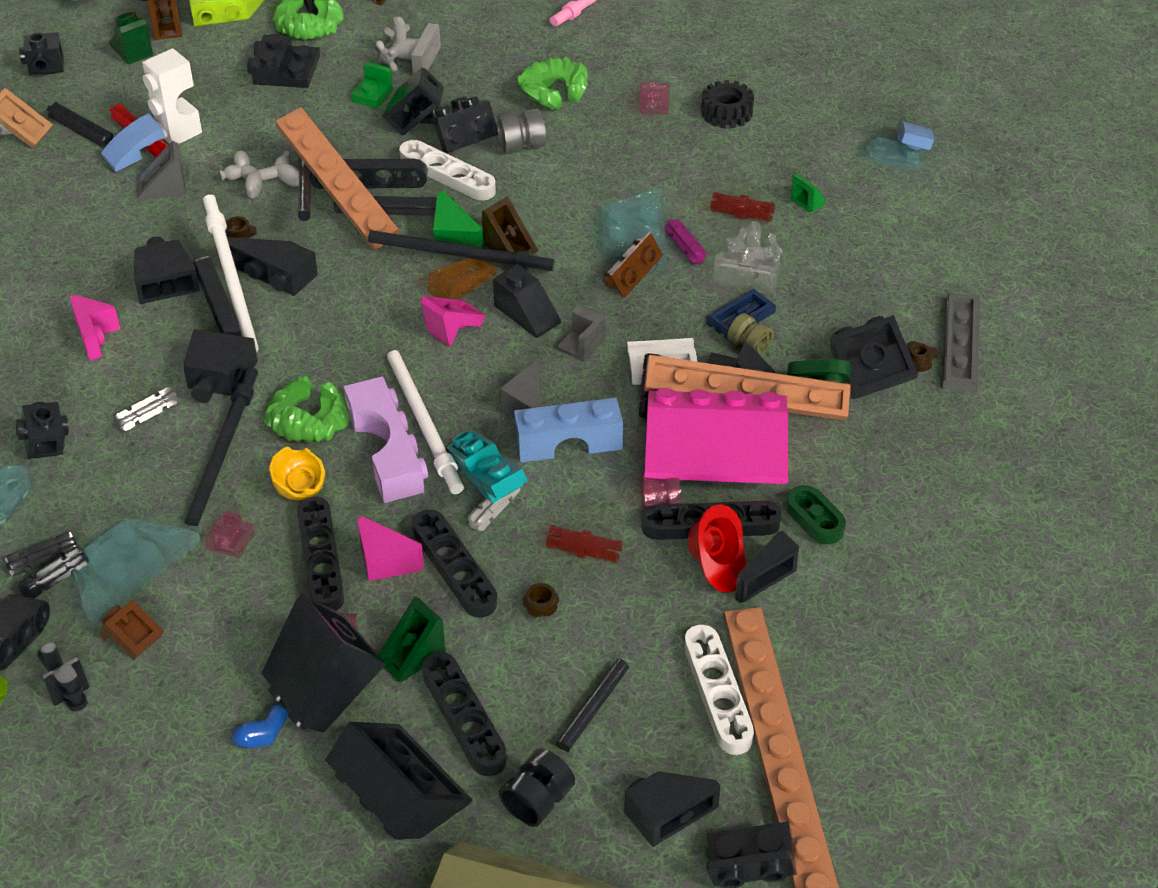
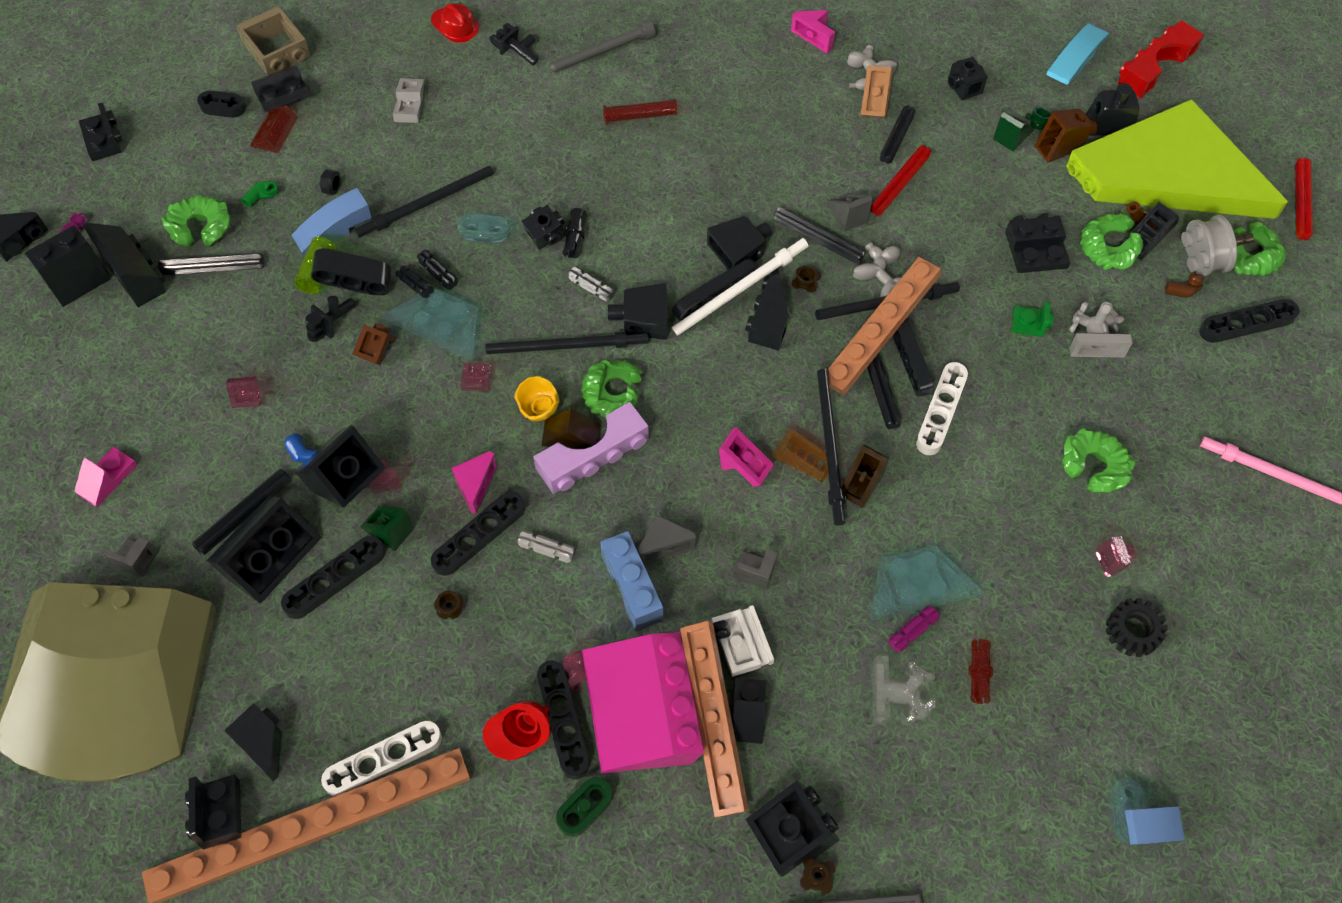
camera: 75 degrees right, 15 degrees up
(75, 414) = (574, 233): none -> black pin
(93, 321) = (662, 216): dark pink slope -> none
(125, 146) = (881, 172): medium blue slope -> none
(139, 783) = (243, 392): none -> clear pink tile
(166, 79) = (926, 168): white arch -> none
(180, 211) = (819, 235): none -> black axle
(320, 553) = (467, 435): black beam -> none
(329, 807) = (240, 512): none -> black axle
(349, 460) = (571, 430): none -> dark brown slope
(421, 94) = (1015, 354): black torso -> none
(444, 462) = (581, 499): white bar -> none
(454, 224) = (862, 427): green slope -> none
(462, 122) = (1008, 399): black bracket -> none
(485, 467) = (569, 530): teal slope -> none
(520, 131) = (1013, 455): flat silver wheel -> none
(524, 301) = (781, 511): black slope -> none
(537, 786) = (259, 641): black wheel -> none
(584, 544) = (514, 623): clear red pin -> none
(592, 705) = (355, 666): black bar -> none
(635, 265) = (847, 586): reddish brown hinge -> none
(747, 330) = (796, 709): olive wheel -> none
(760, 310) = (824, 708): dark blue tile -> none
(768, 567) = (517, 777): black slope -> none
(806, 194) = (1024, 731): green slope -> none
(821, 369) = (756, 780): dark green plate -> none

